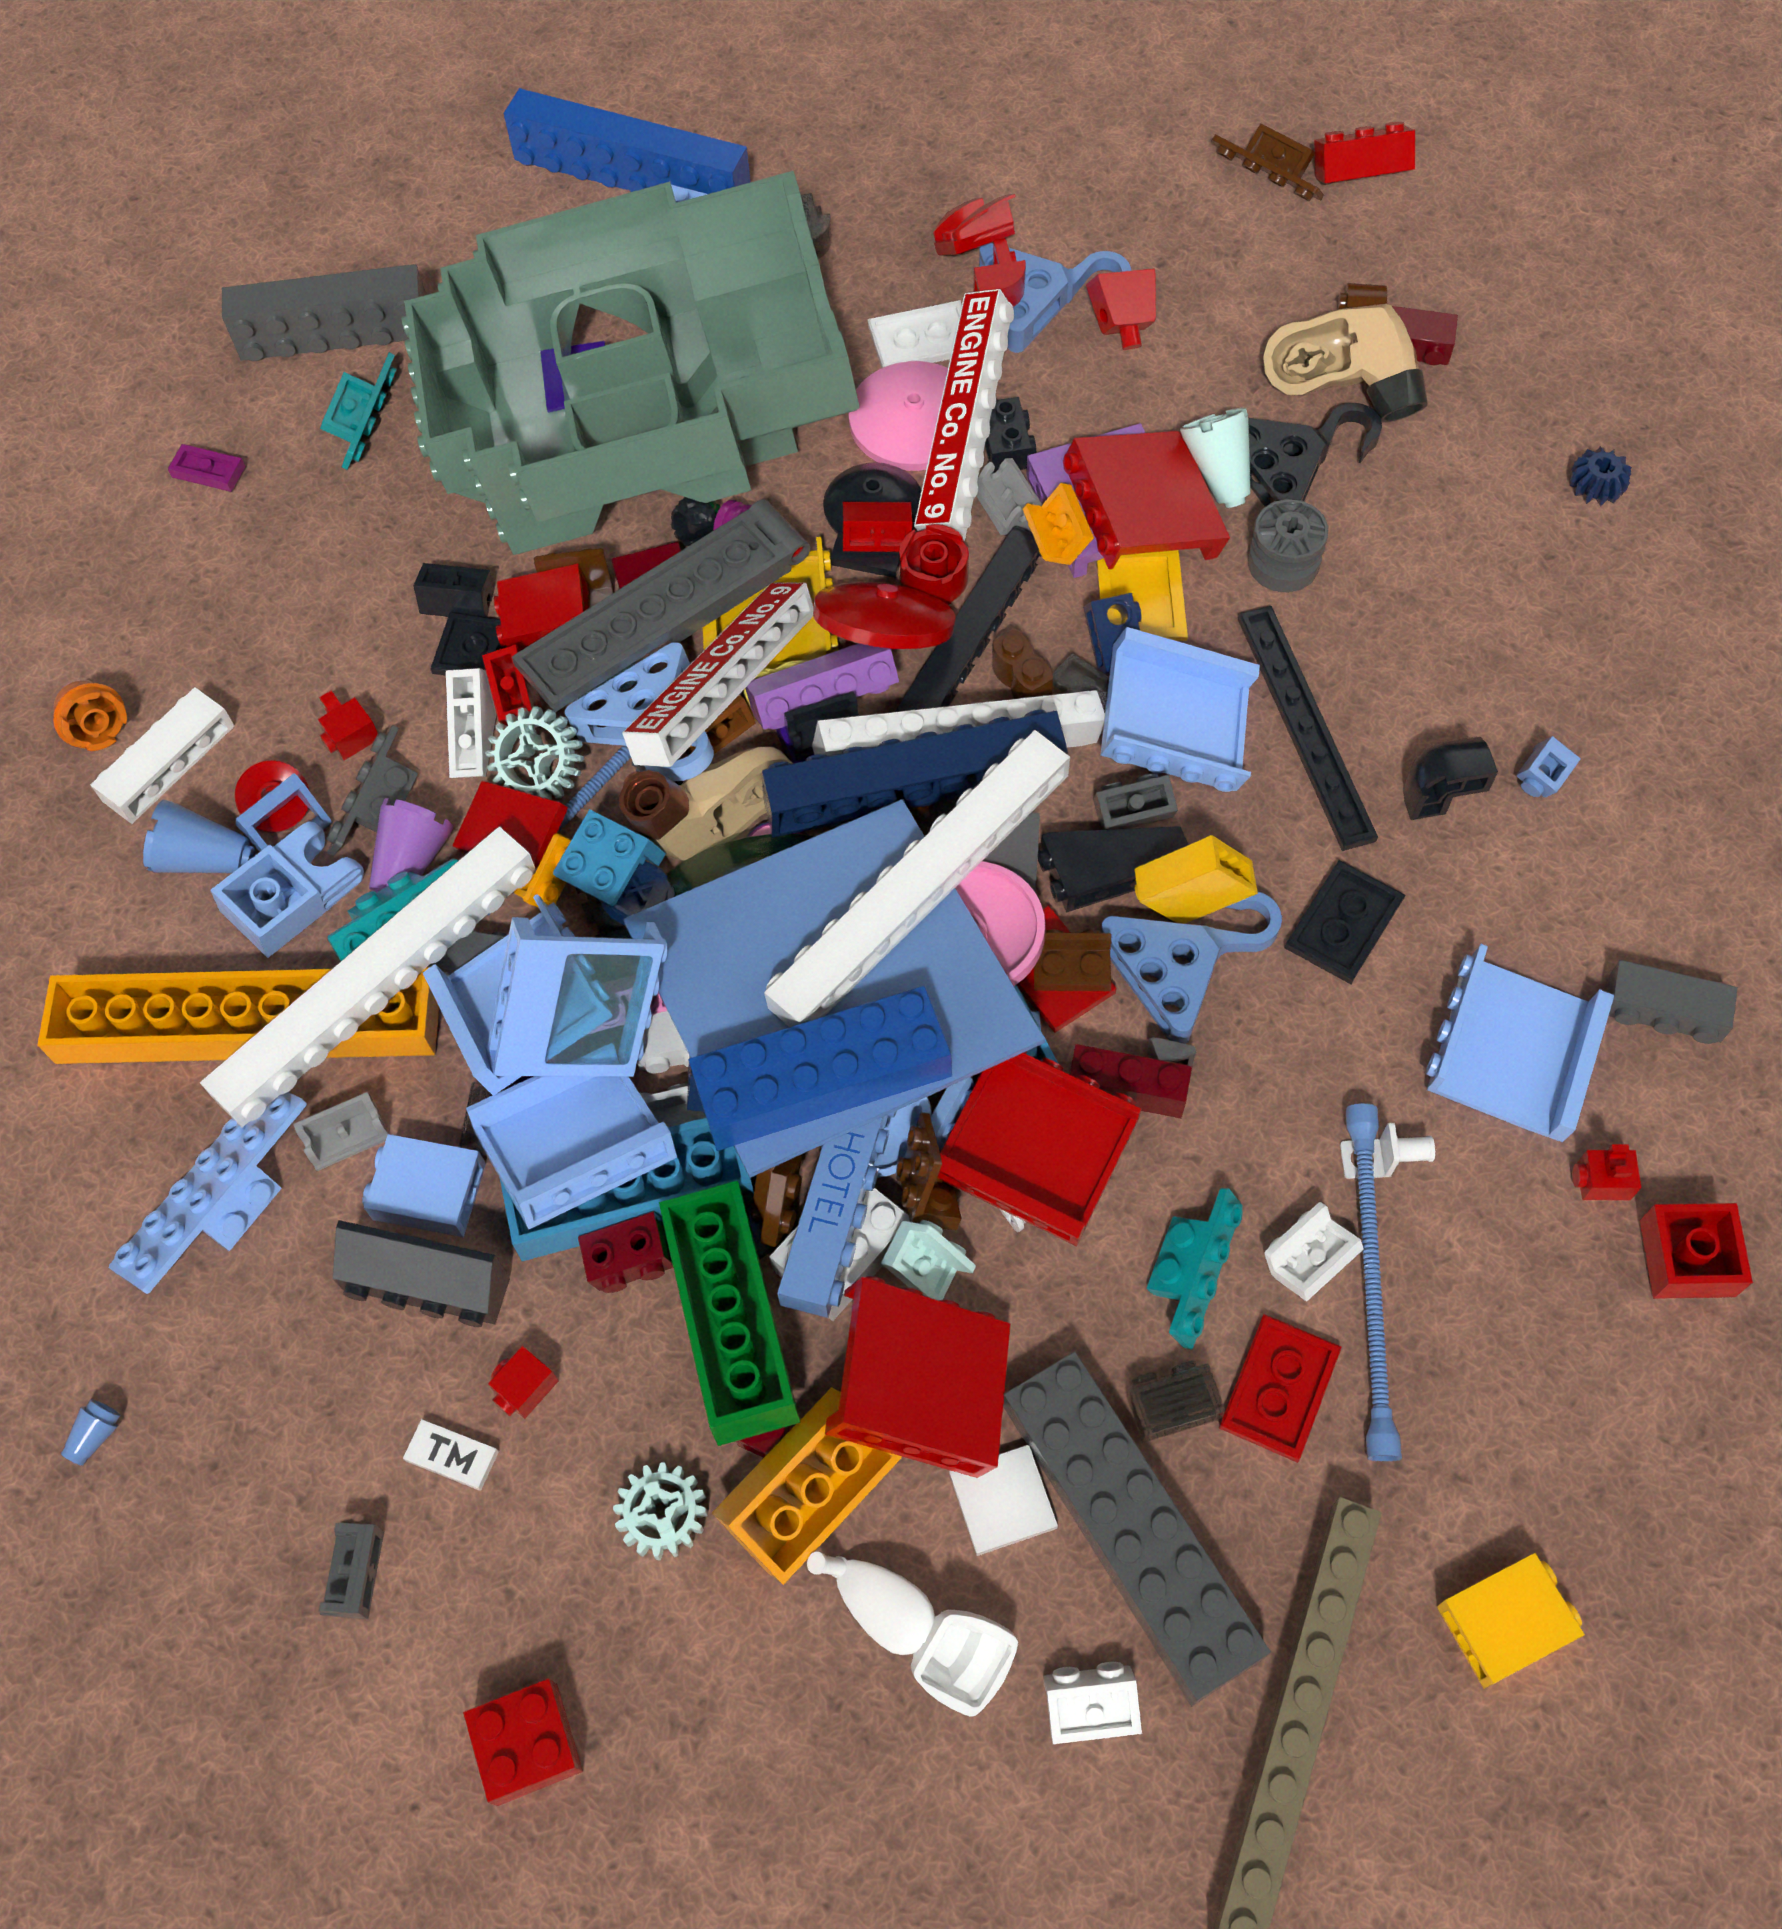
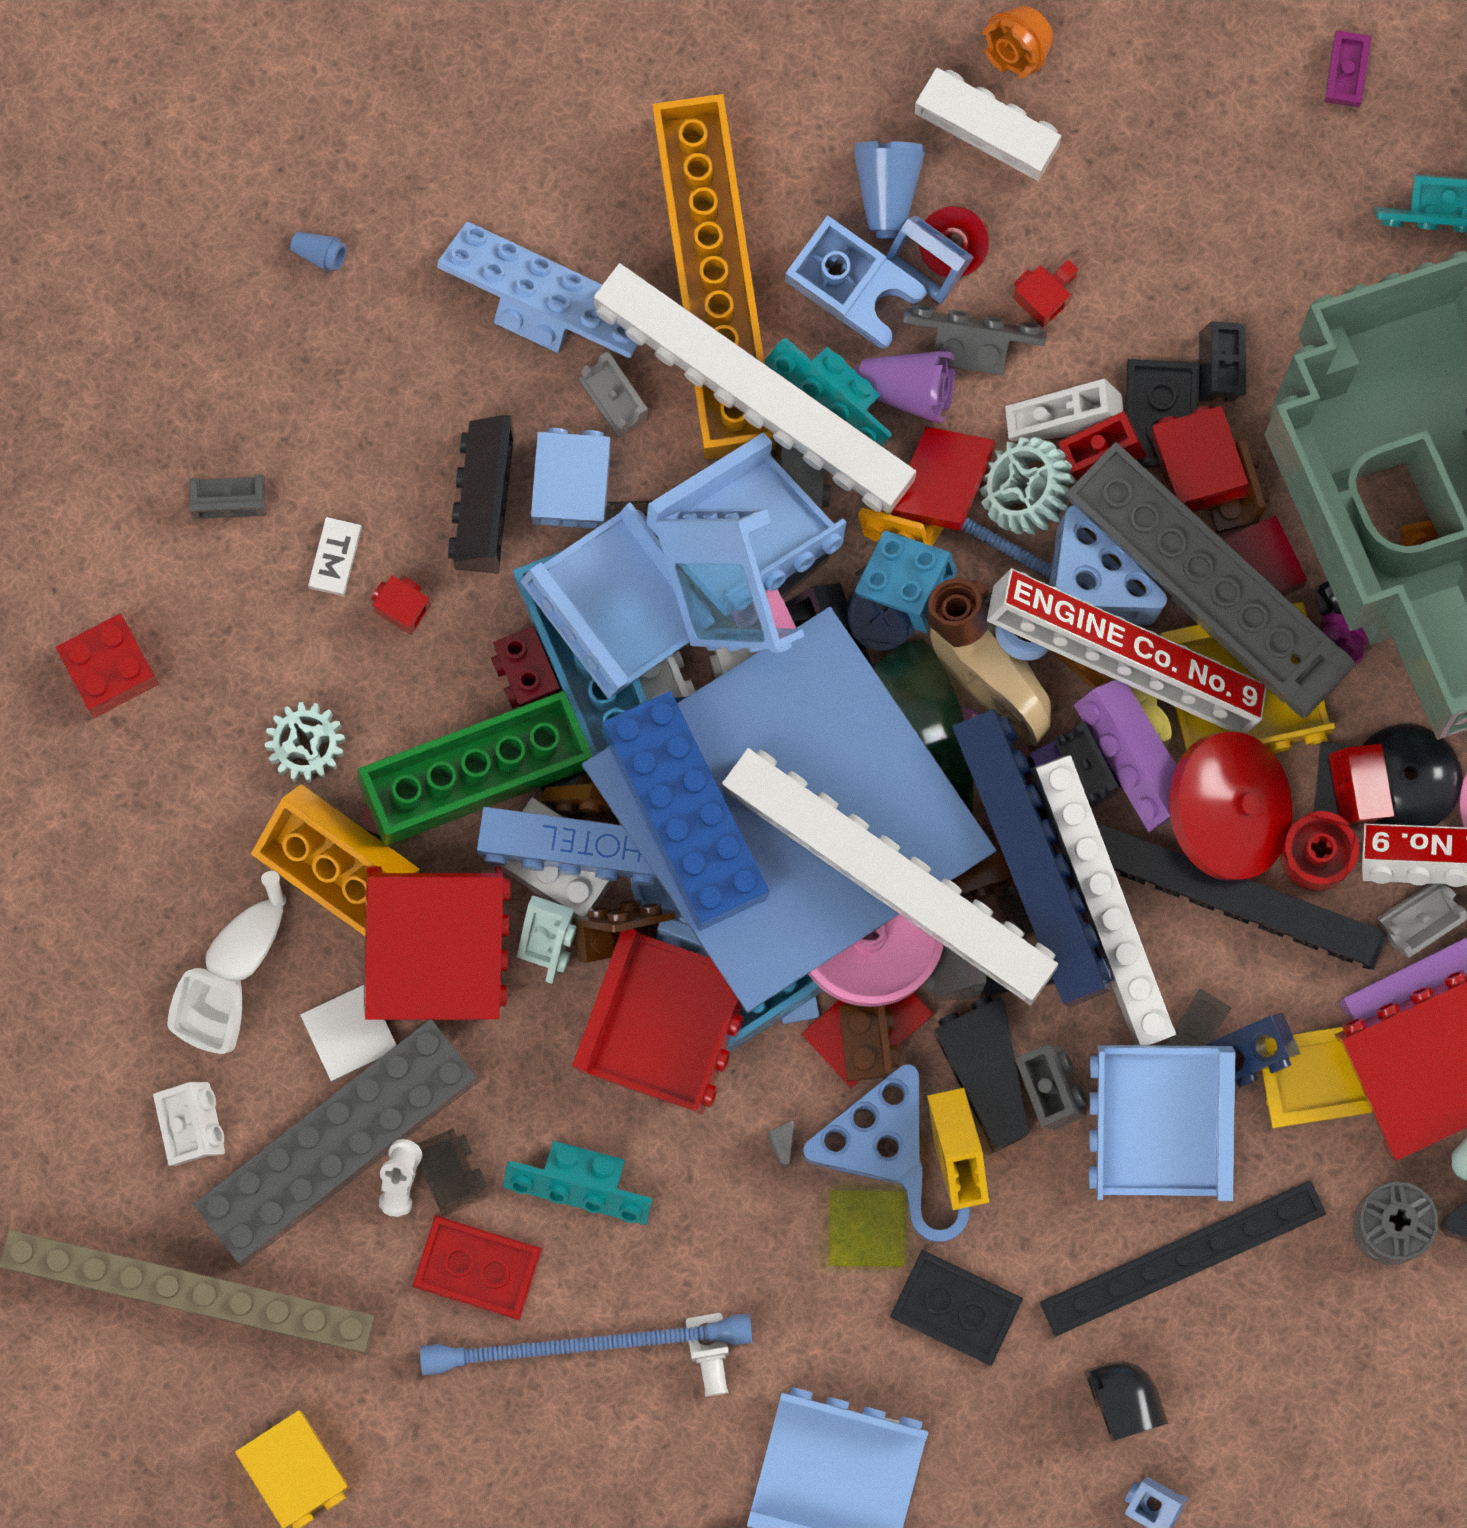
camera: 80 degrees right, 15 degrees up
(1019, 667) = (1194, 962): reddish brown brick -> none
(1059, 526) = (1373, 973): light orange bracket -> none
(1152, 1083) = (750, 1106): dark red brick -> none
(1181, 1451) = (398, 1176): none -> white connector
(1261, 993) = (866, 1228): none -> clear neon green tile
(1311, 1252) = (602, 1287): white bracket -> none

